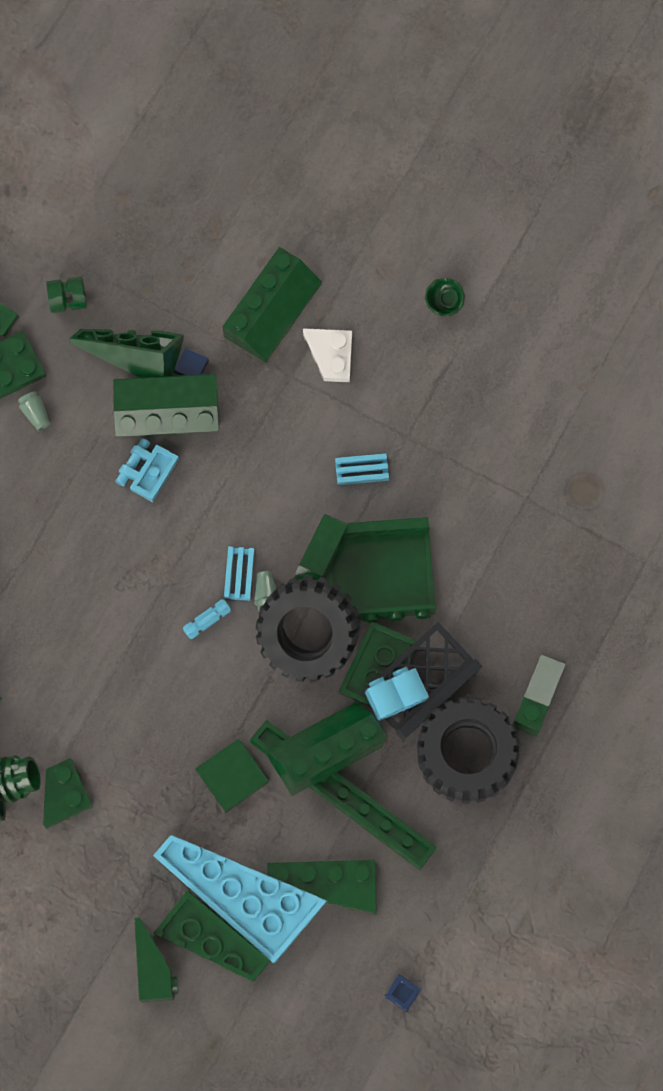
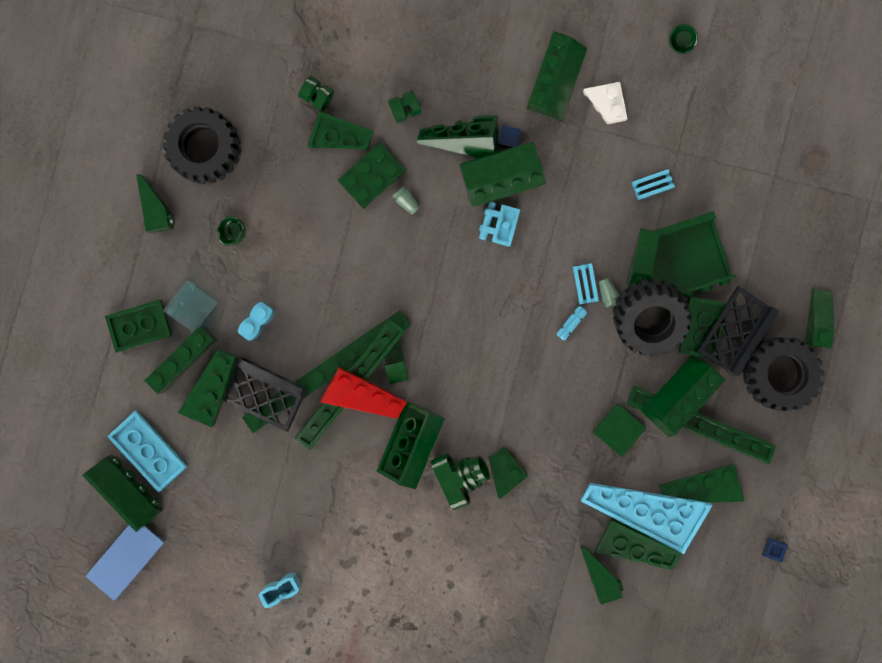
camera: 20 degrees left, 15 degrees up
(396, 693) = (726, 348): medium azure brick -> none

